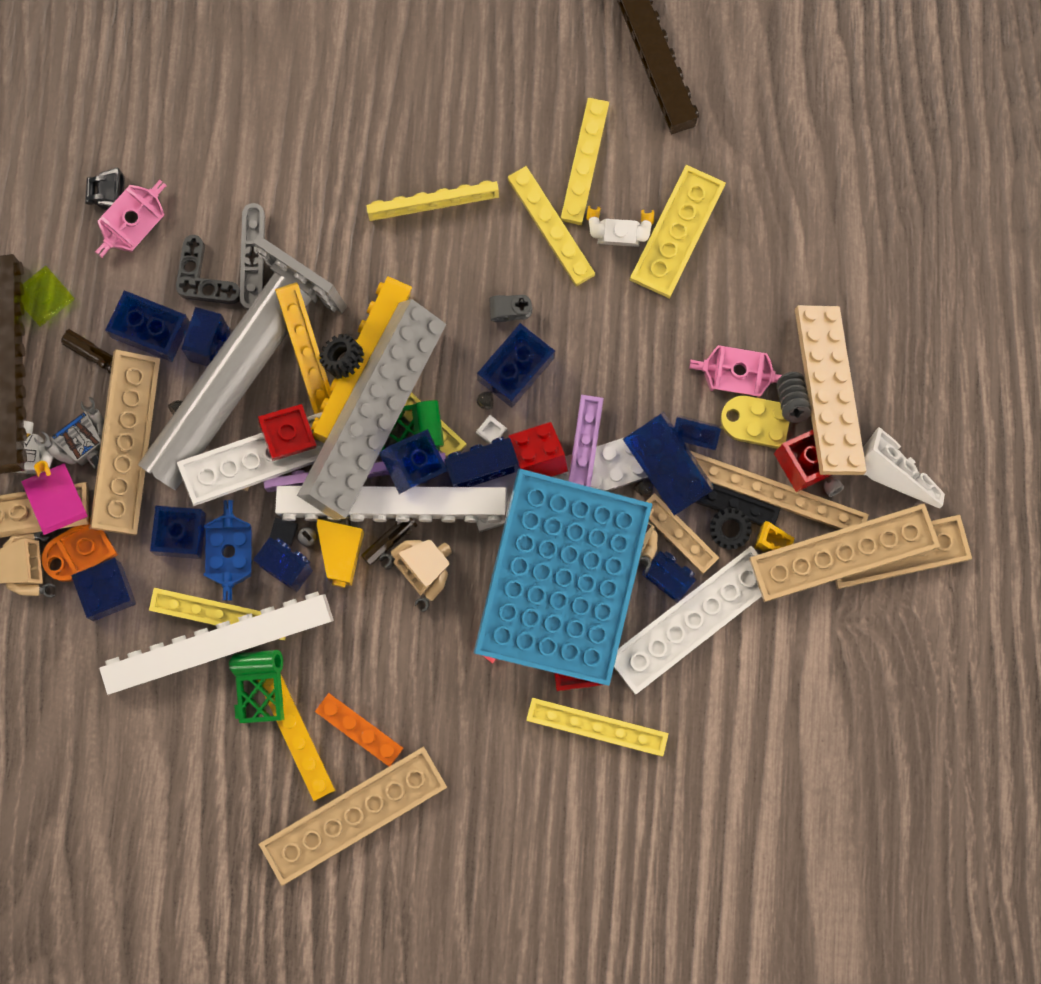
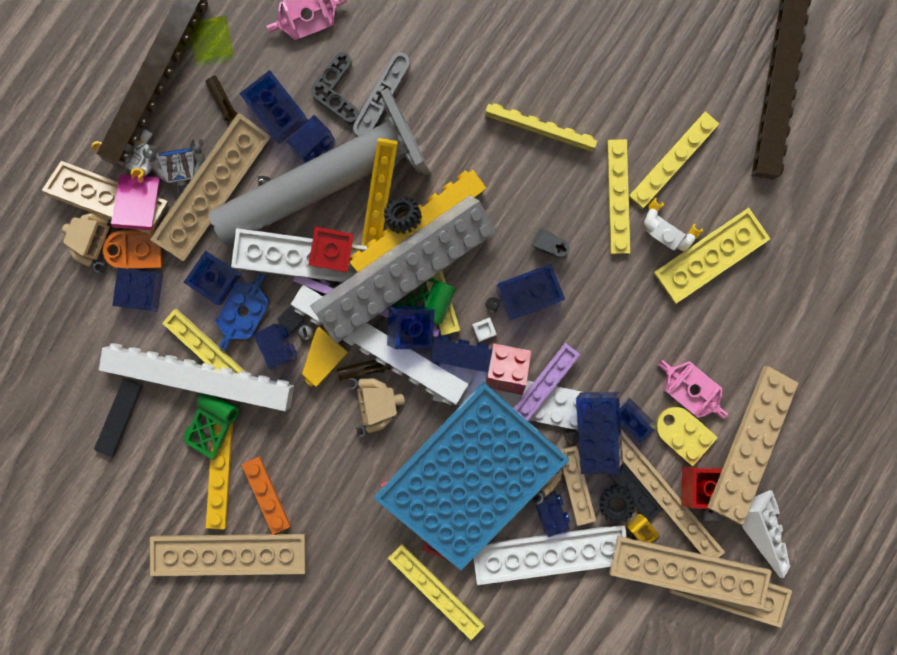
camera: 30 degrees right, 10 degrees up
(154, 738) = (118, 417): none -> black tile
(793, 397) = (722, 435): dark grey piece -> none

